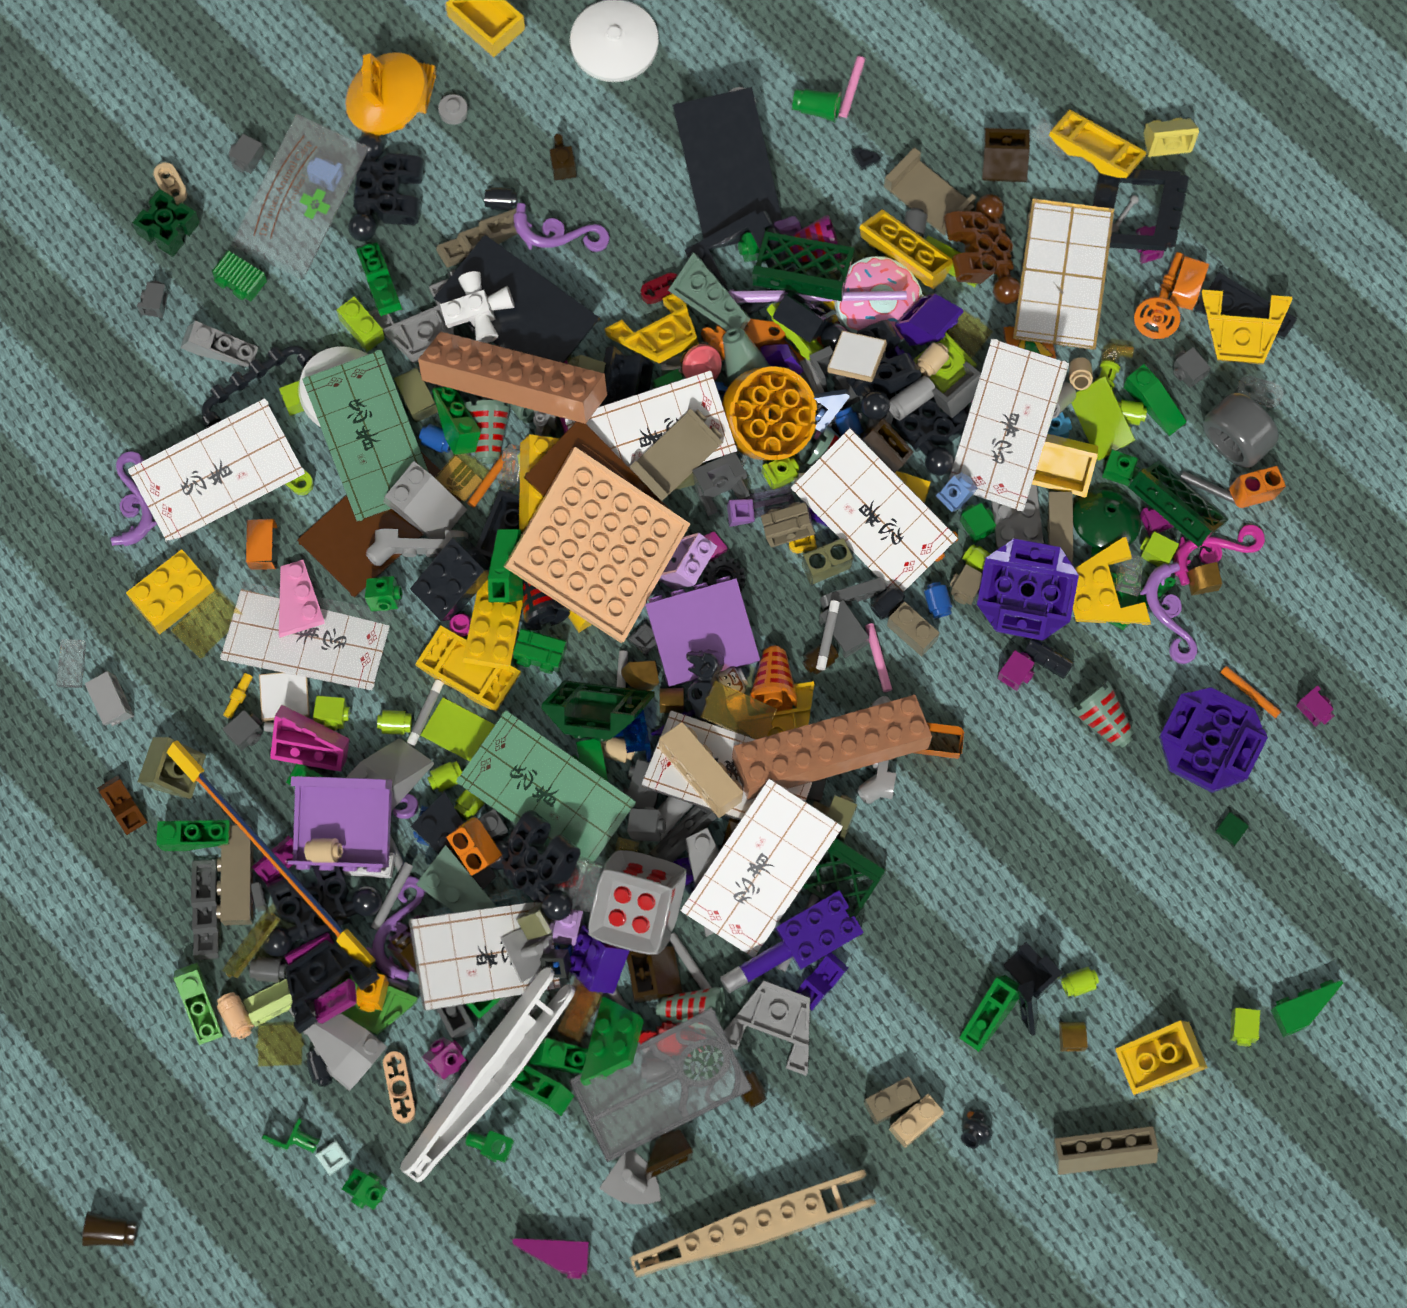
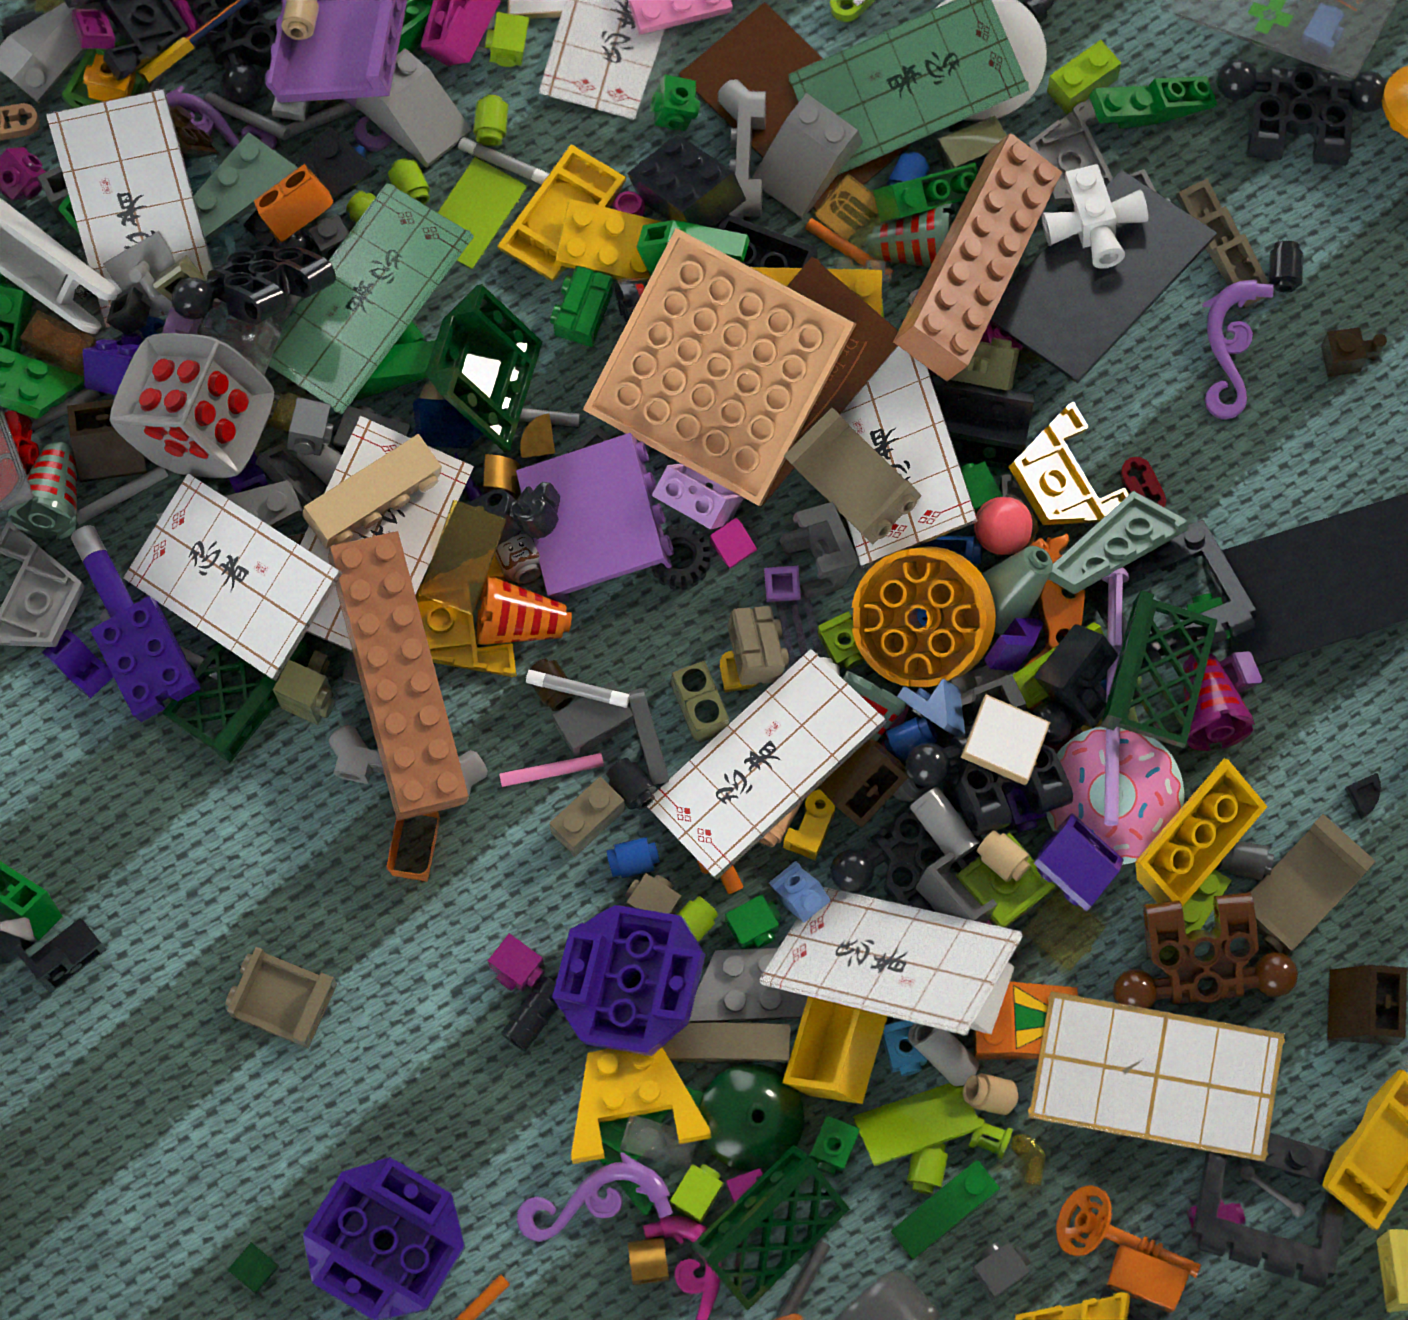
camera: 95 degrees right, 0 degrees up
(1050, 822) = (280, 997): none -> dark tan panel
(1080, 982) = (41, 1021): lime brick -> none
(1104, 714) = (437, 1085): sand green cone -> none

